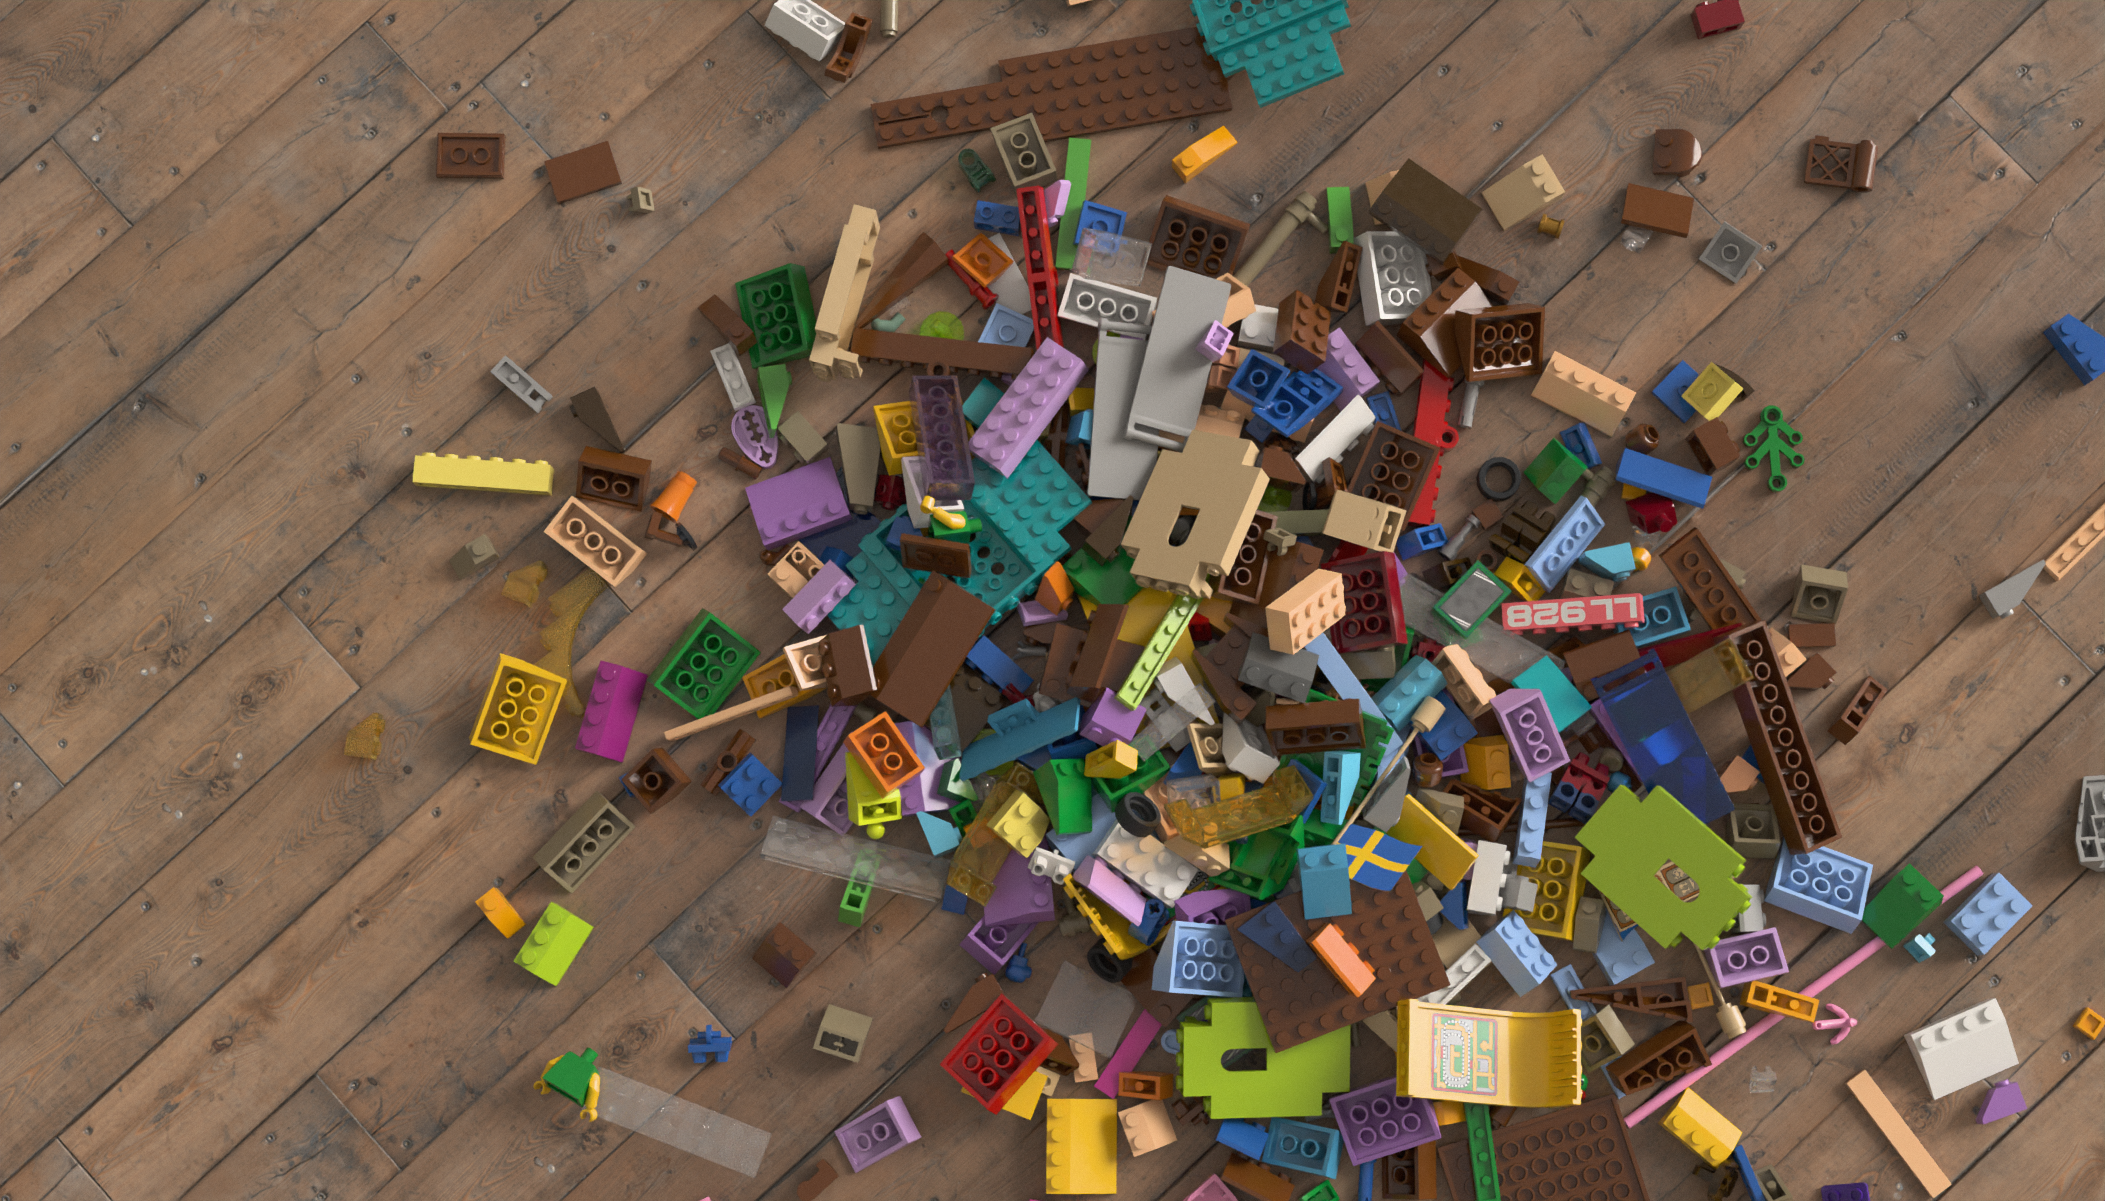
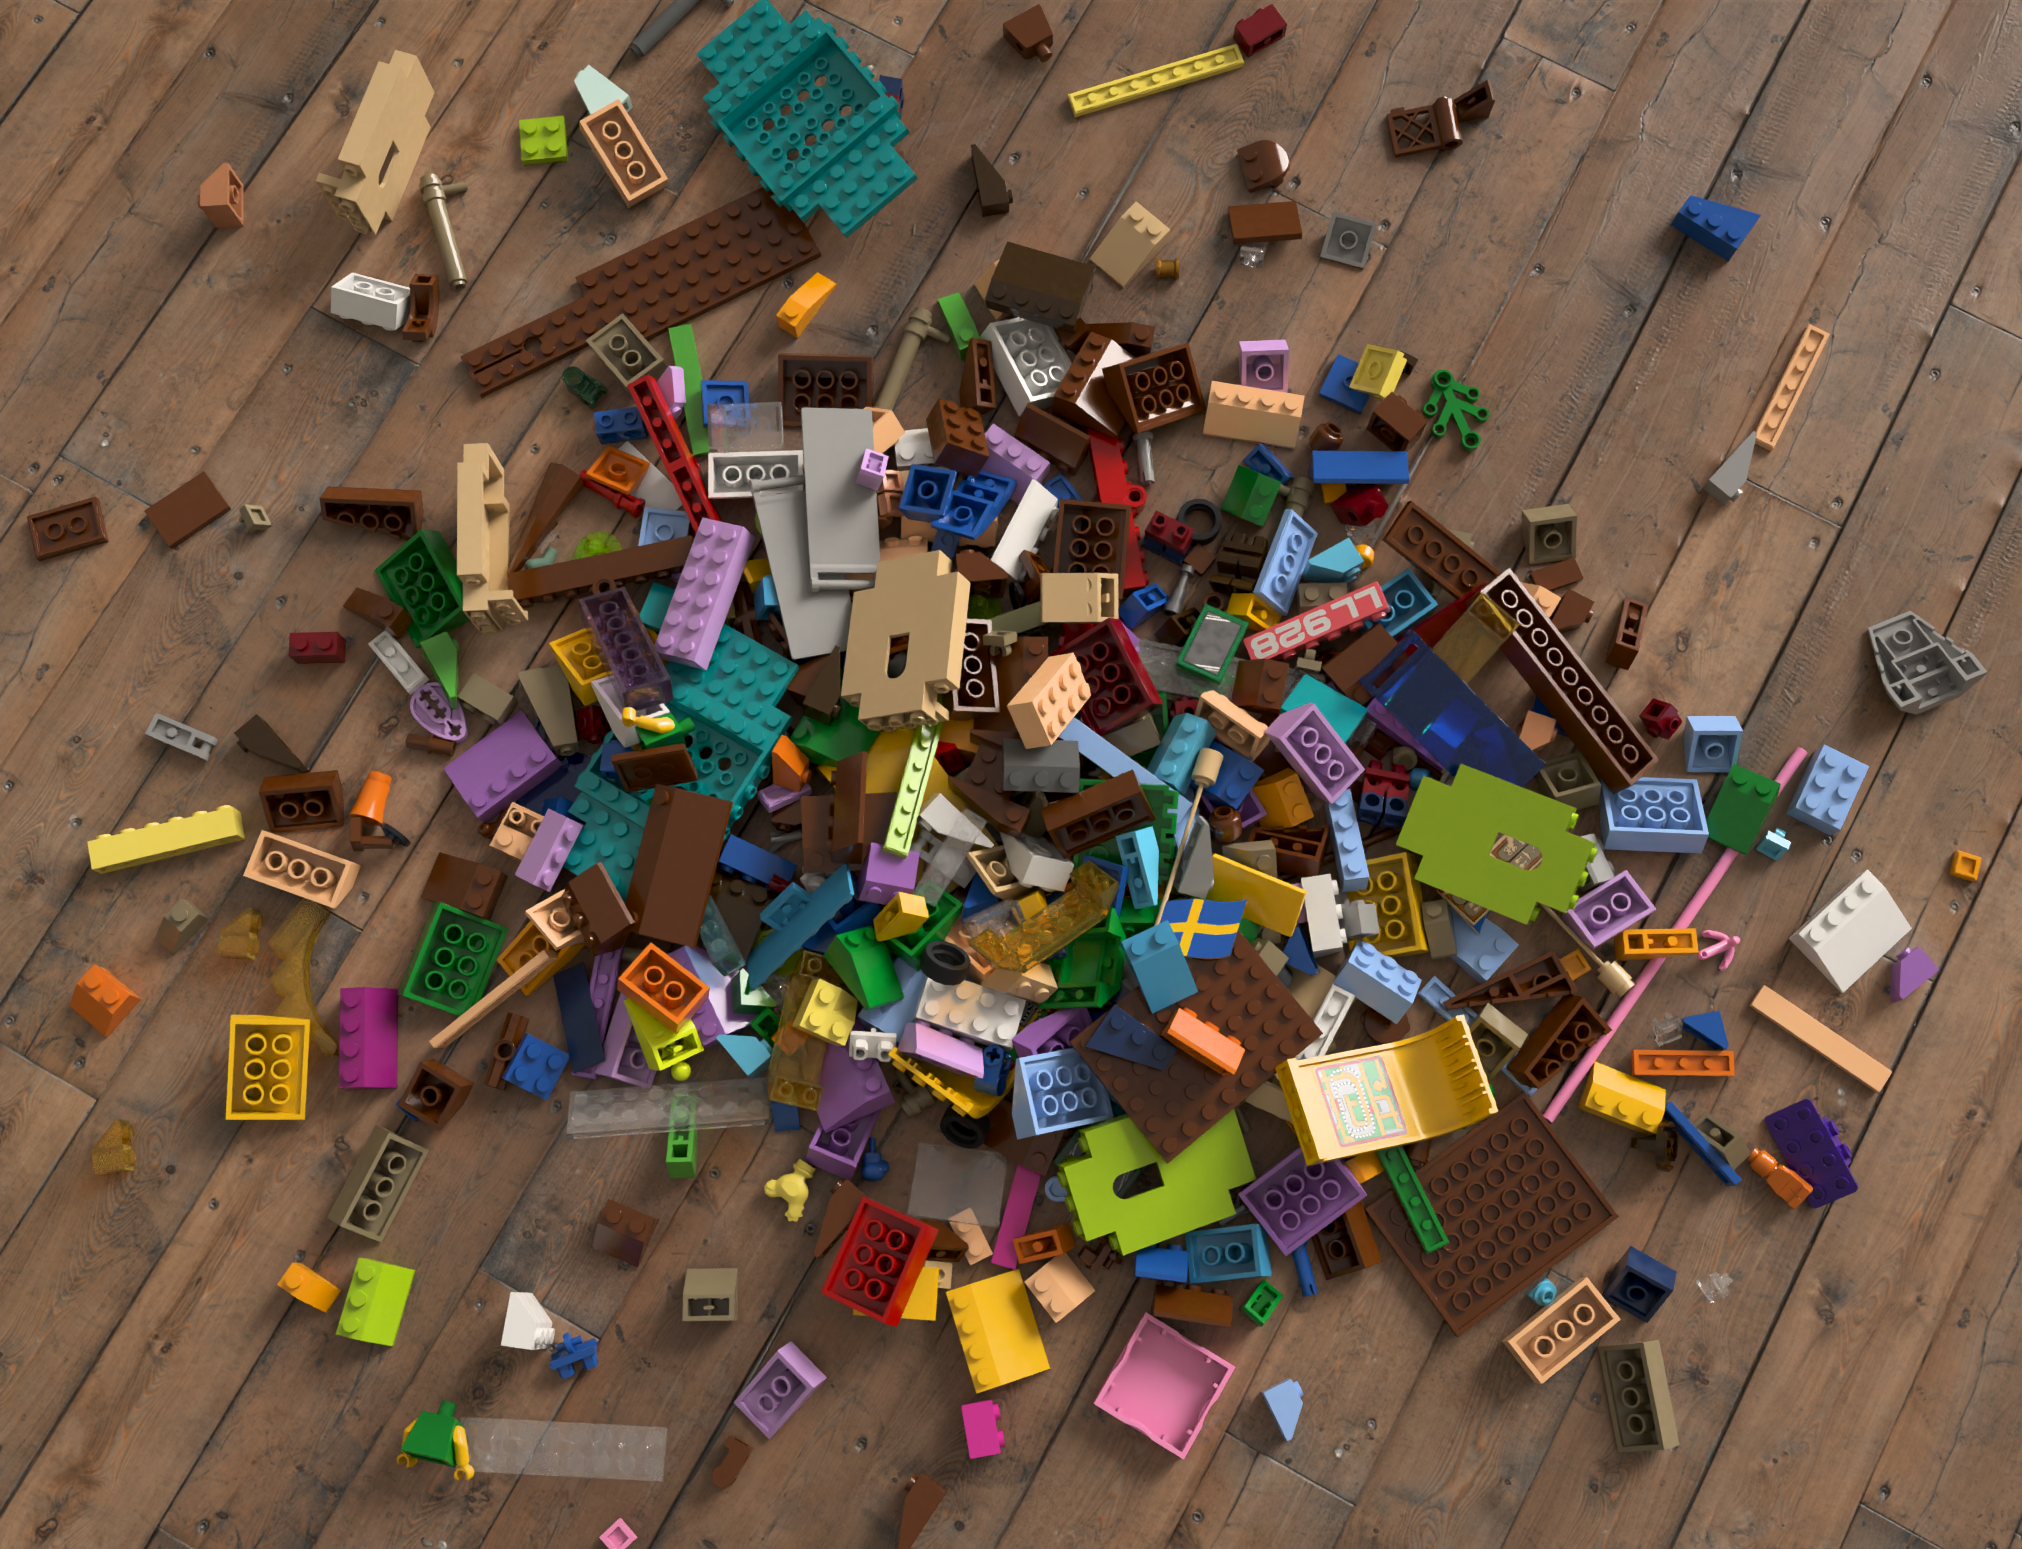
camera: 20 degrees left, 5 degrees down
(389, 601) = (102, 999): none -> orange slope
(664, 341) = (317, 647): none -> dark red brick
(679, 1007) = (526, 1323): none -> white slope
(733, 601) = (465, 885): none -> reddish brown slope
(752, 228) = (375, 509): none -> reddish brown wedge
(941, 965) = (792, 1189): none -> light yellow animal
(1411, 94) = (990, 185): none -> dark brown slope
(1469, 485) = (1167, 531): none -> dark red hips
(1501, 653) = (1260, 686): none -> reddish brown slope
(1506, 996) = (1382, 1029): none -> reddish brown piece
(1553, 645) = (1308, 663): none -> dark tan tile
(1602, 35) = (1155, 80): none -> light yellow tile
(1609, 349) = (1264, 364): none -> lavender slope
(1765, 1114) = (1682, 1063): none -> orange plate
(1798, 1091) = (1708, 1029): none -> blue slope
(1858, 800) = (1660, 719): none -> dark red brick
(1897, 155) = (1475, 103): none -> reddish brown slope
(1897, 837) = (1711, 743): none -> light blue slope

